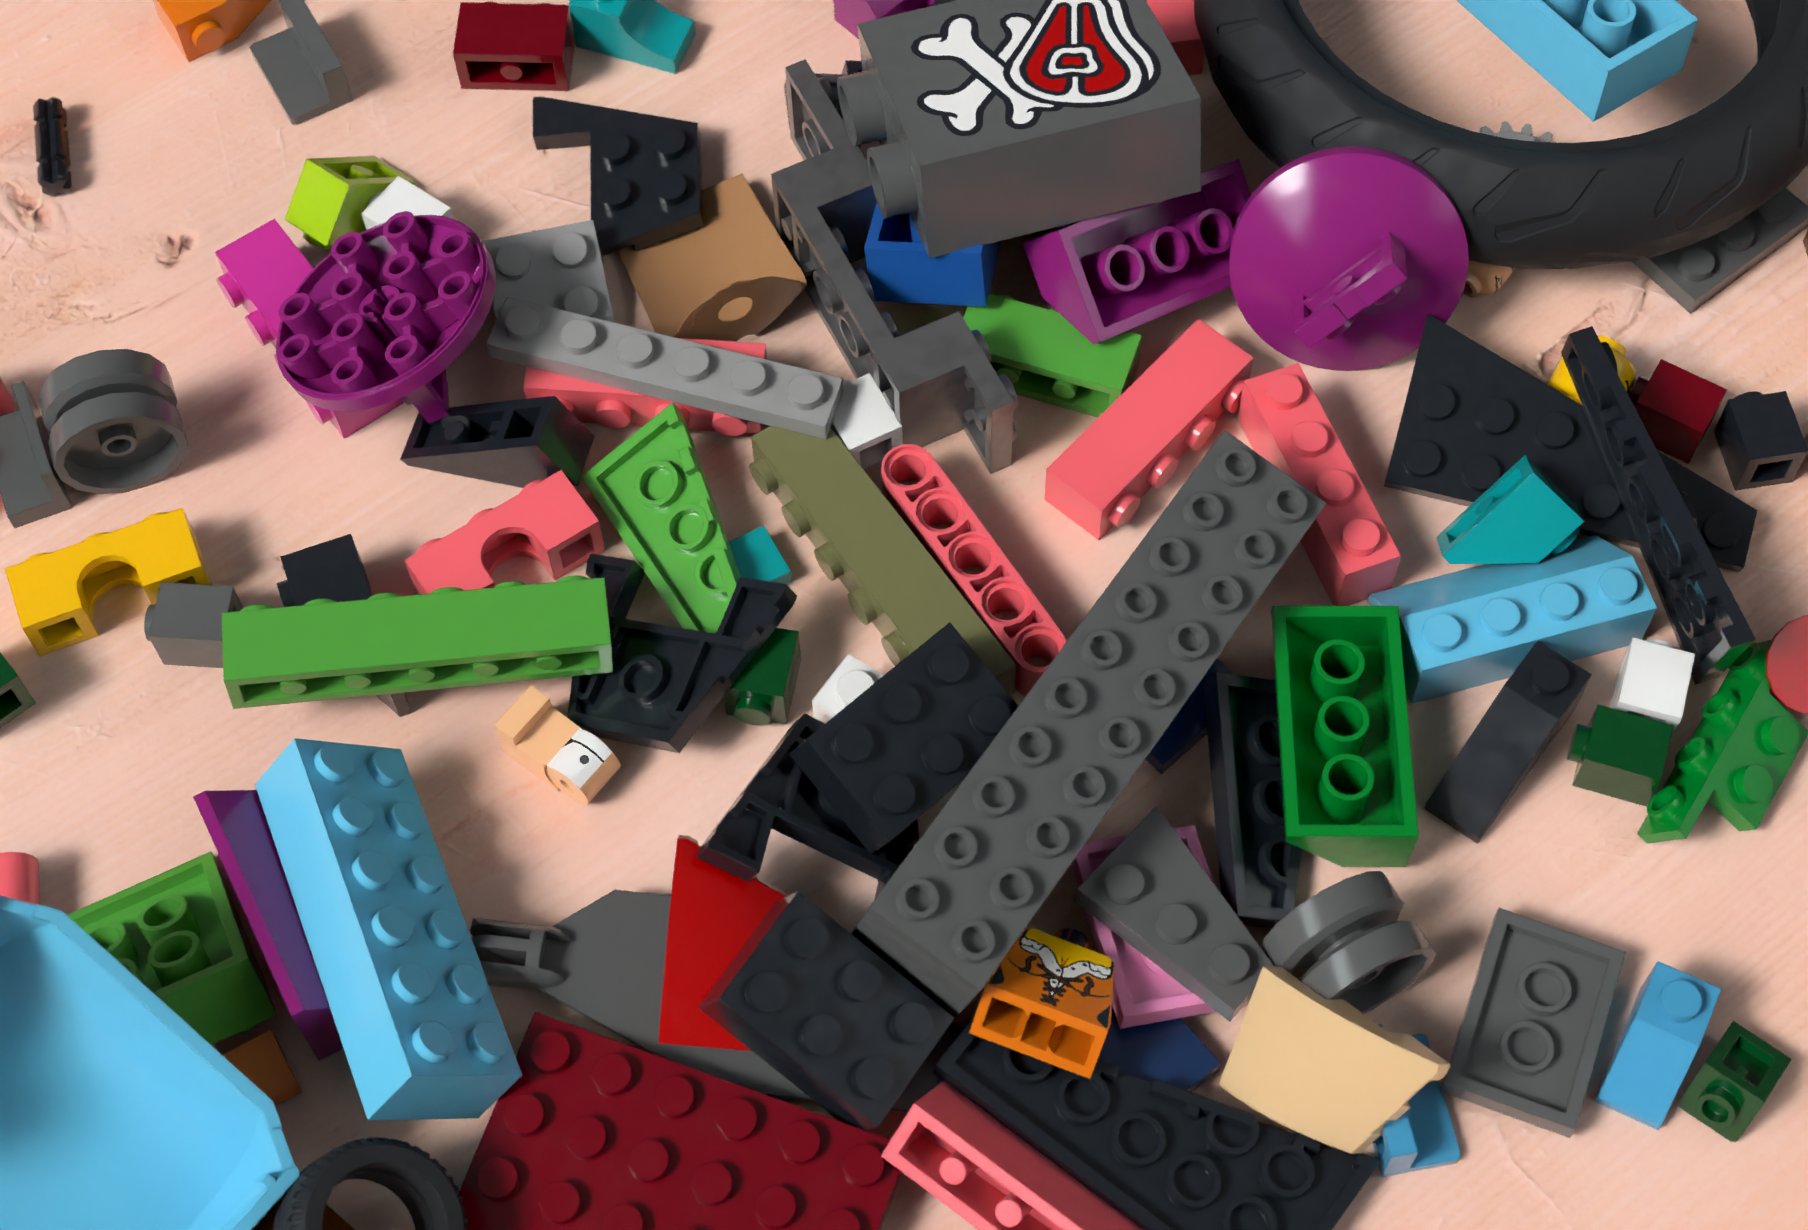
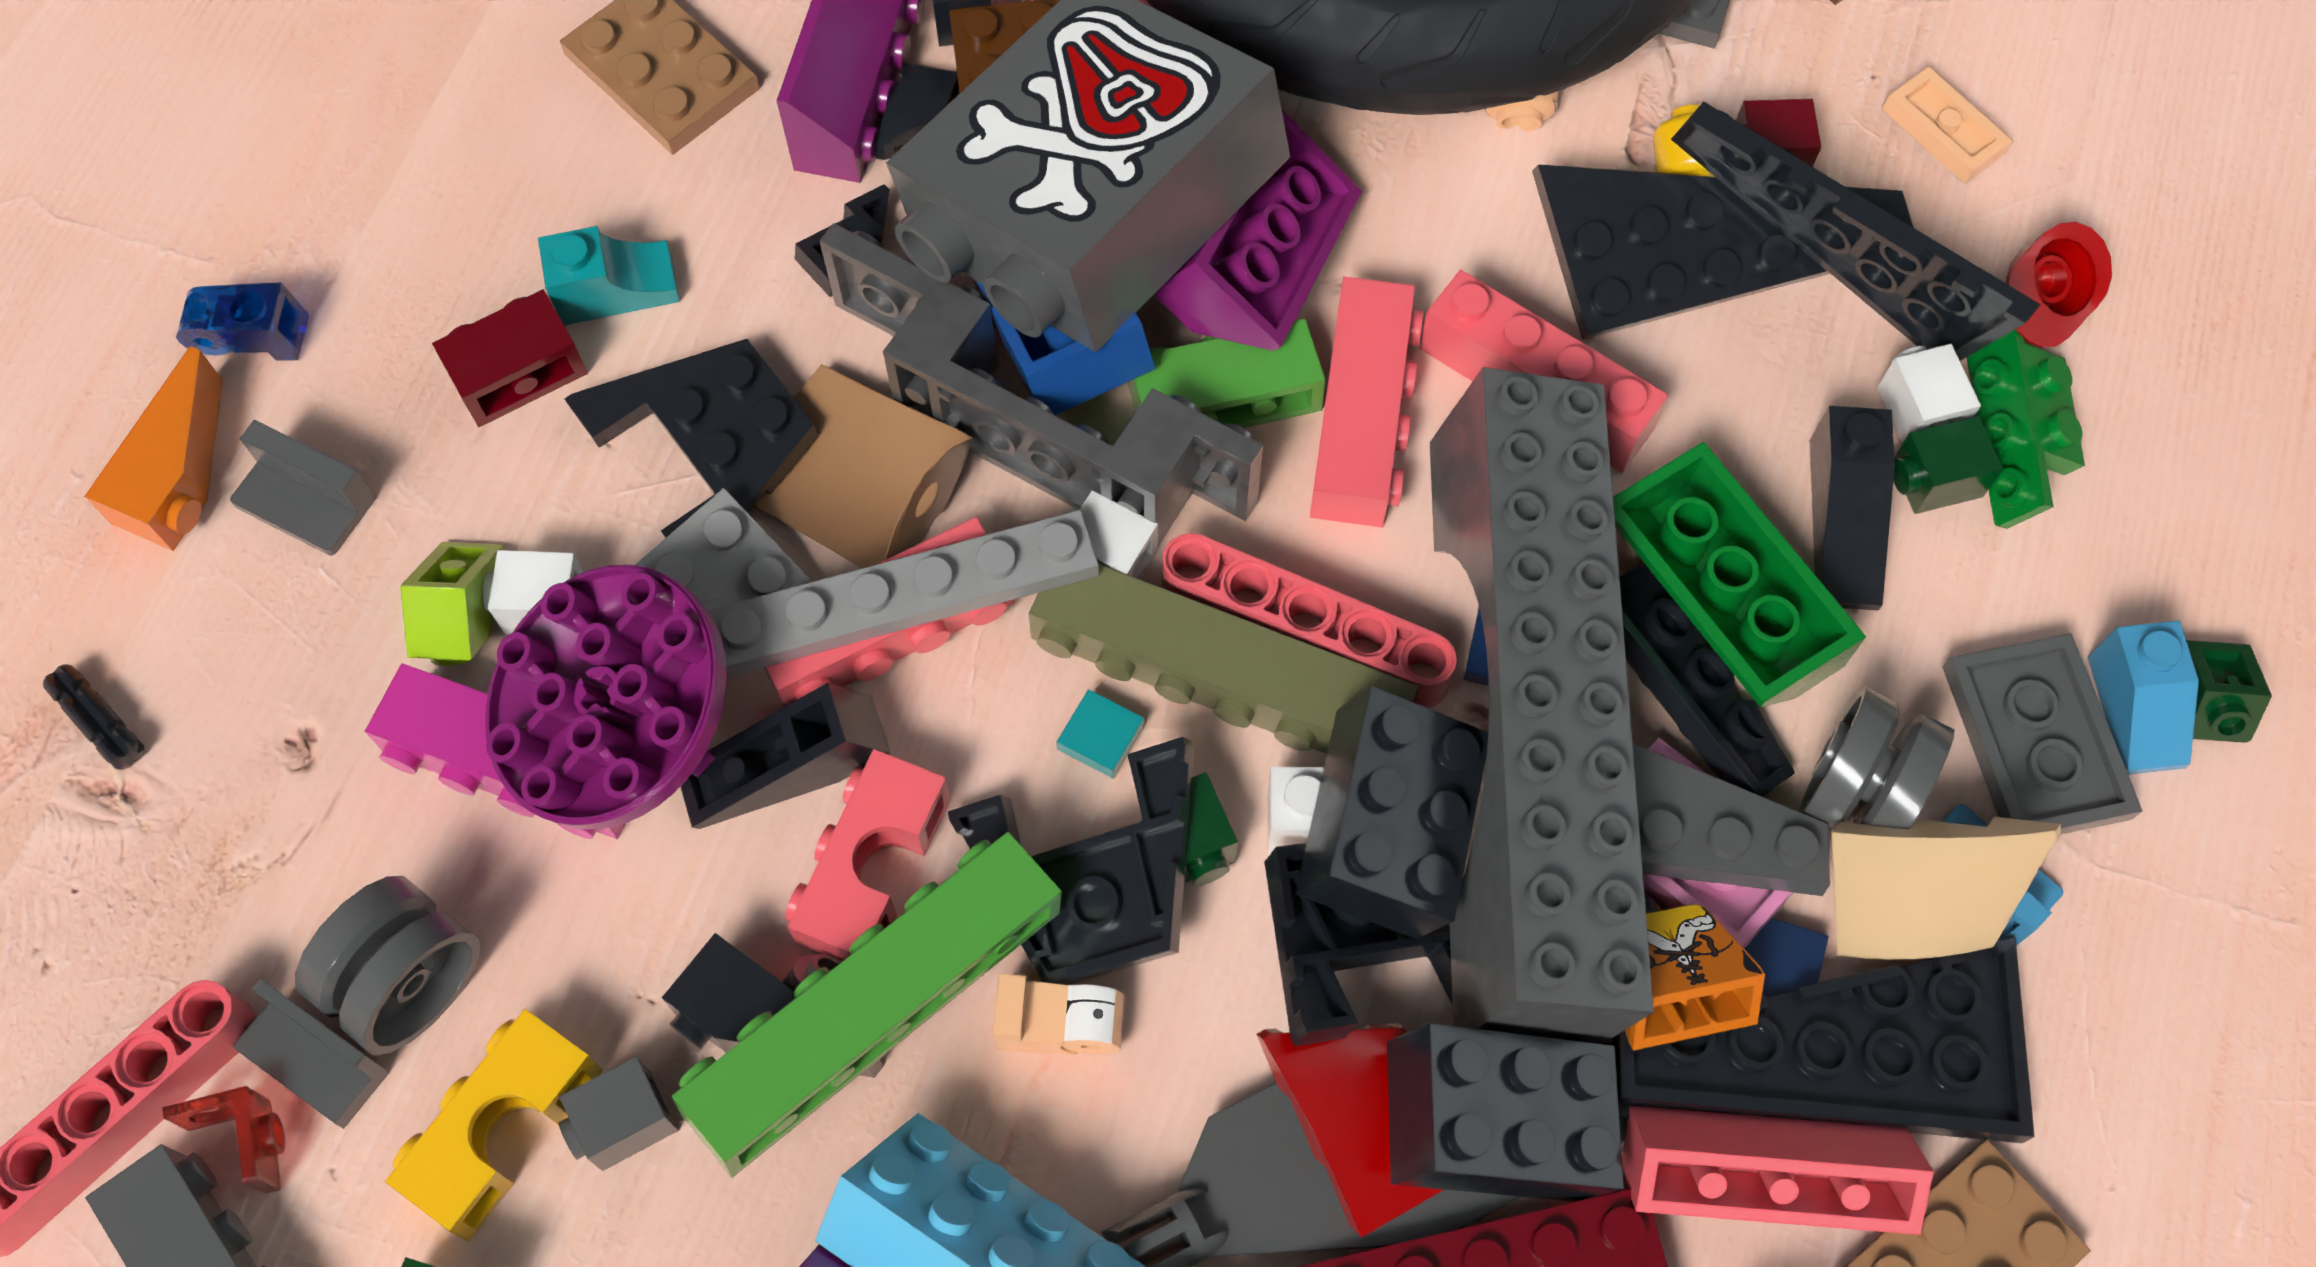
camera: 35 degrees left, 5 degrees up
(669, 519) = (1002, 736): bright green wing -> none
(1347, 258) = (1444, 149): magenta bracket -> none
(1488, 617) = (1777, 382): medium azure slope -> none
(1513, 521) = (1723, 313): teal slope -> none
(1760, 440) = (1858, 127): black brick -> none

